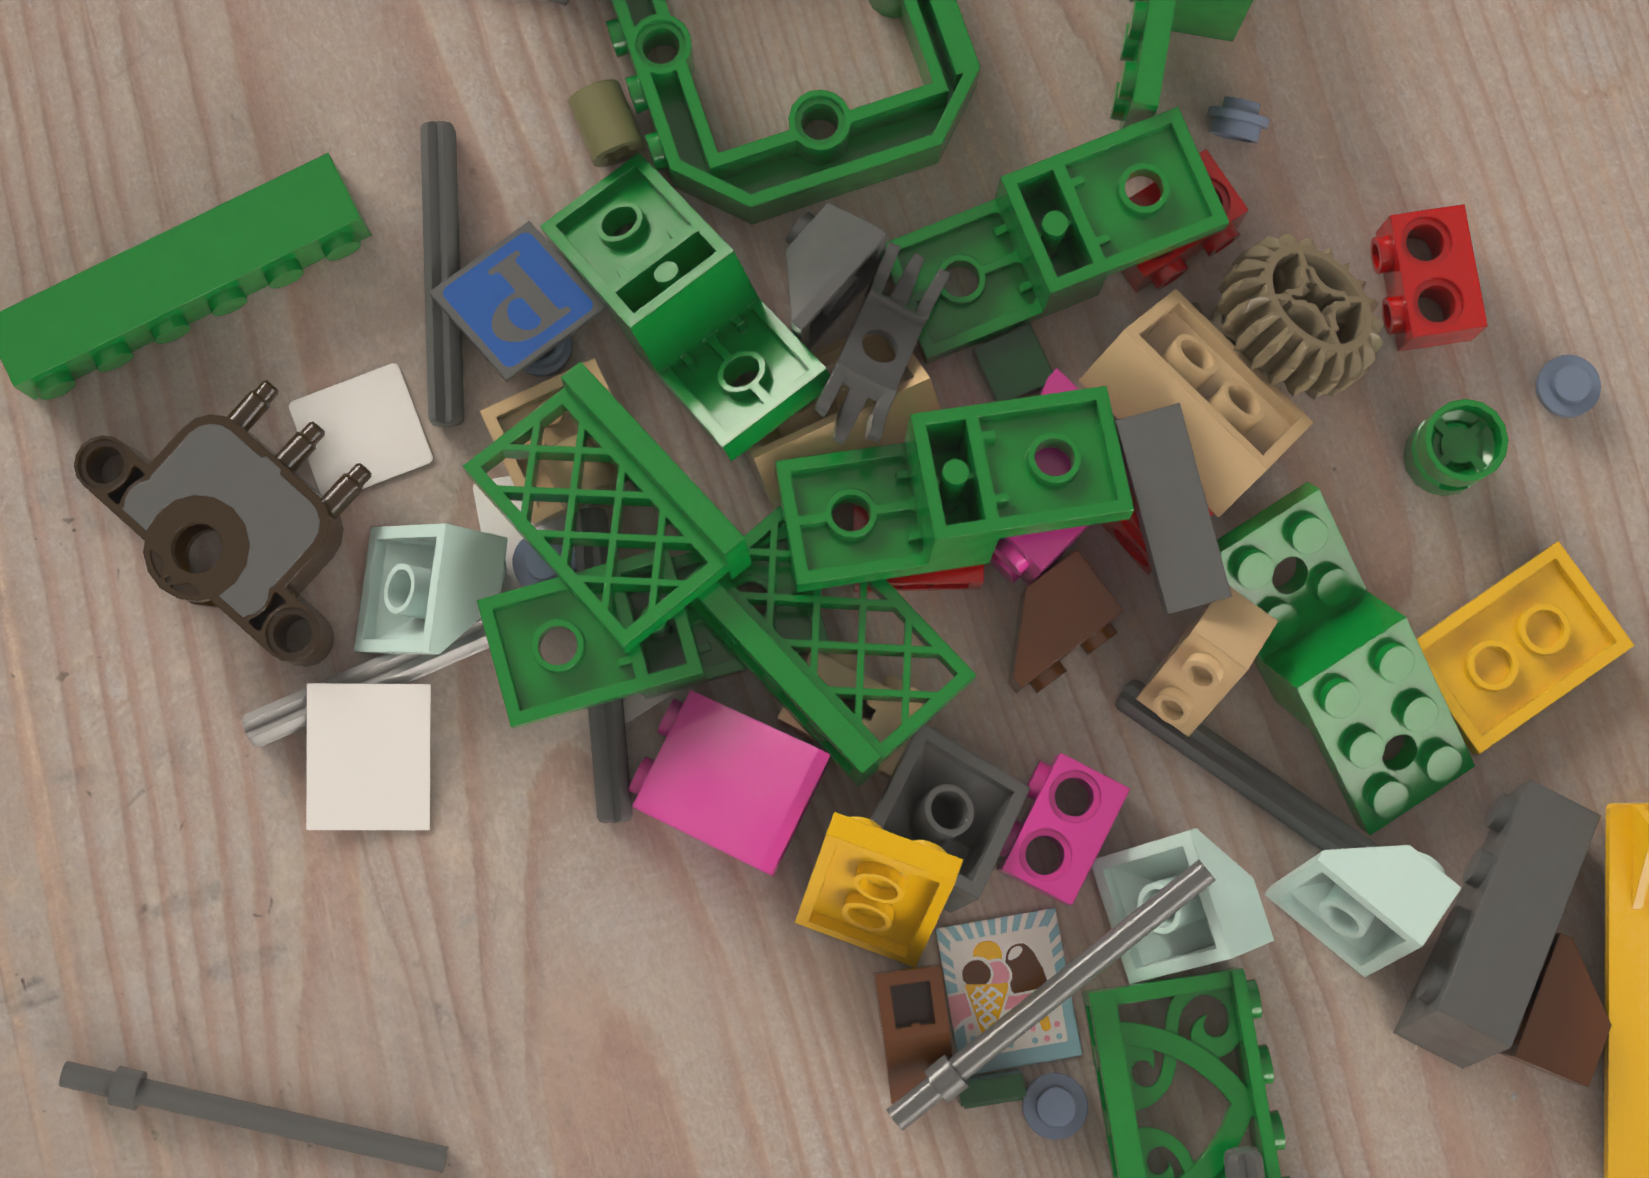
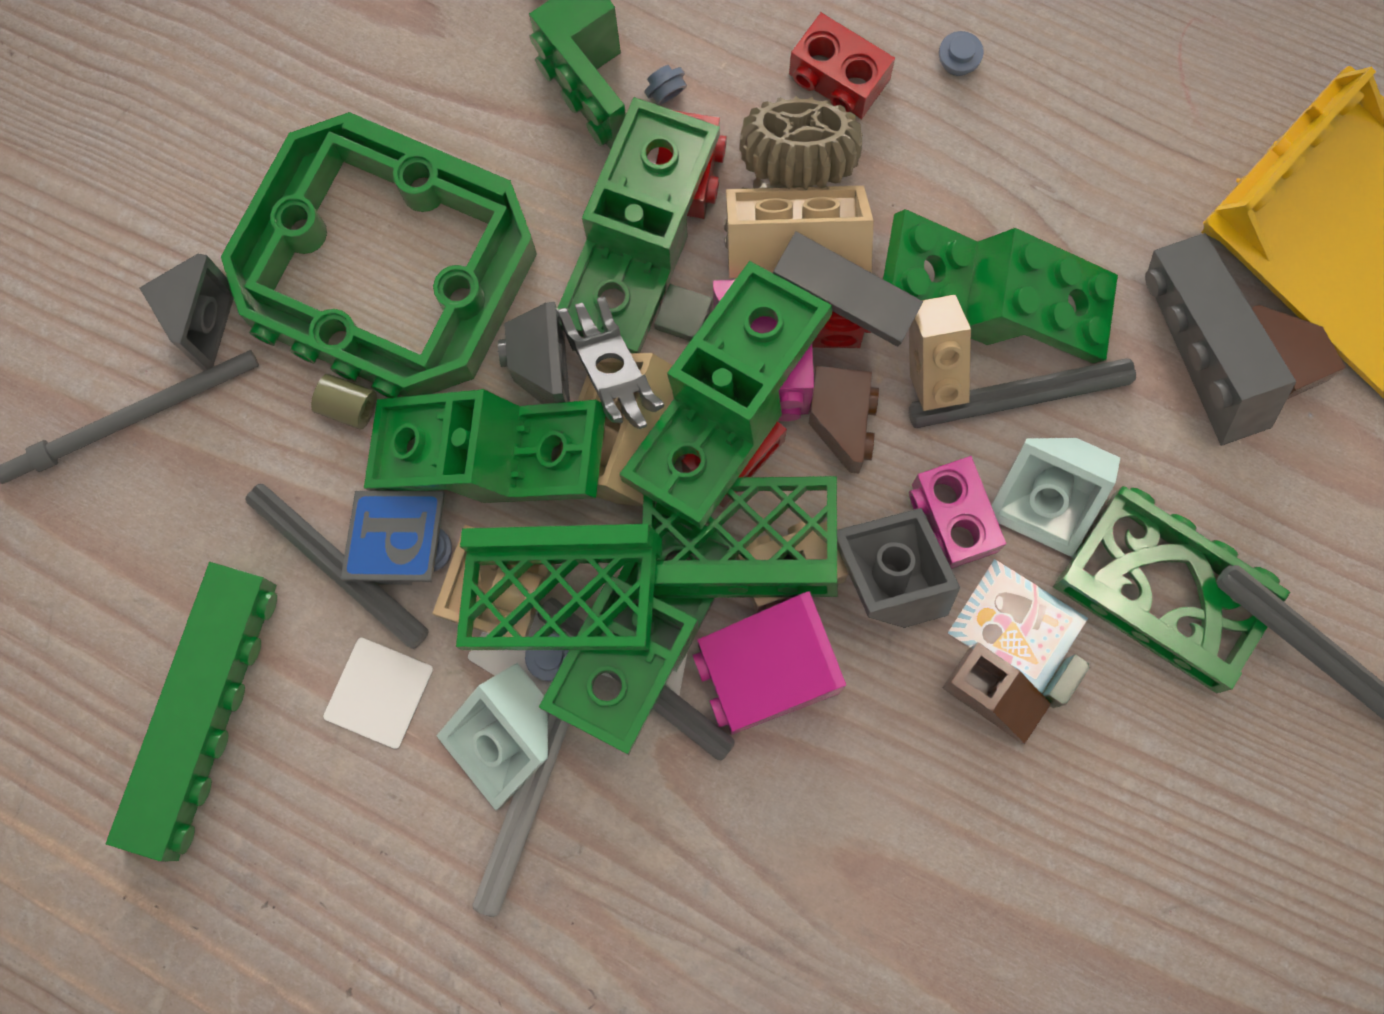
camera: 40 degrees left, 5 degrees down
(268, 519) = (336, 789): dark brown piece -> none
(368, 756) = (562, 857): white sticker -> none
(877, 888) = (905, 636): yellow plate -> none
(949, 1076) = (1042, 694): dark grey bar -> none
(1055, 1106) = (1106, 656): sand blue plate -> none
(1367, 902) = (1145, 390): light aqua slope -> none
(1455, 447) = (942, 131): green wheel -> none
(1521, 646) = (1077, 193): yellow plate -> none

